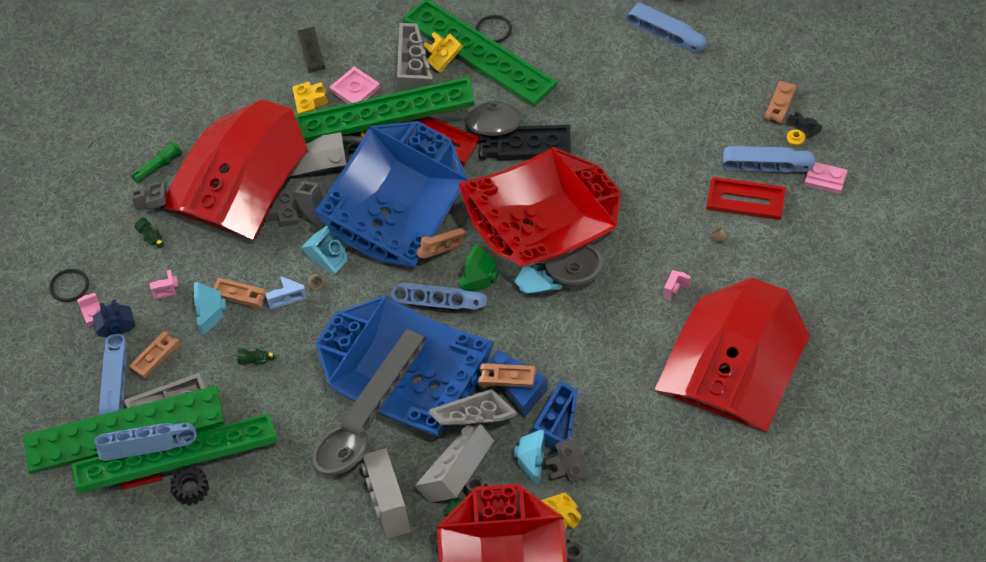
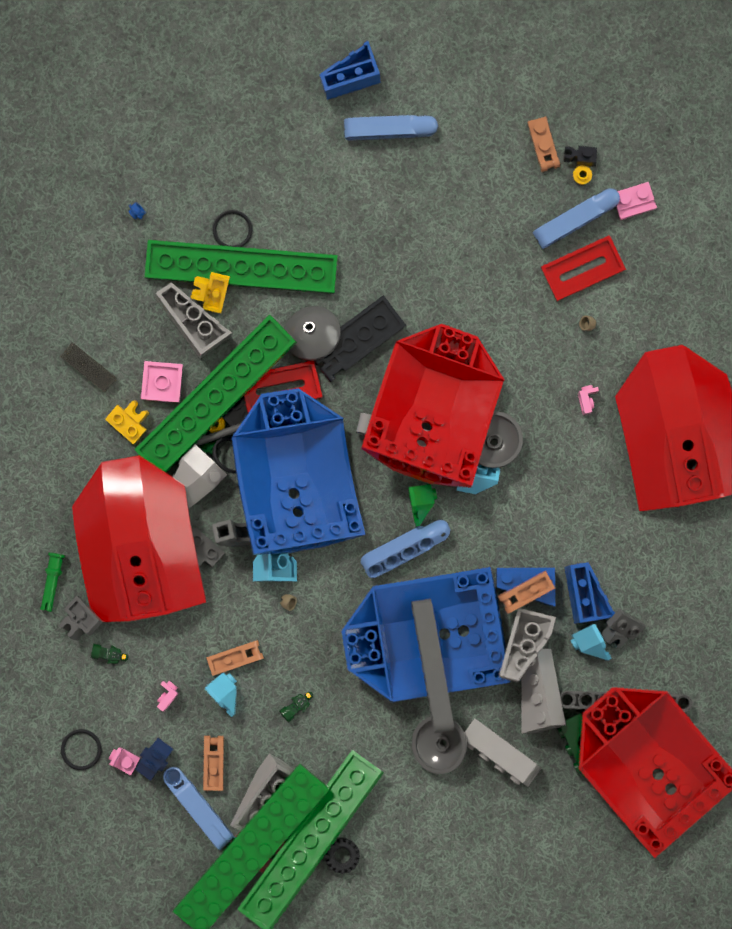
camera: 40 degrees left, 30 degrees up
(143, 440) = (305, 829): medium blue piece -> none
(288, 294) = (278, 628): light blue slope -> none
(440, 243) = (369, 498): nougat plate -> none
(565, 507) = (646, 675): yellow plate -> none

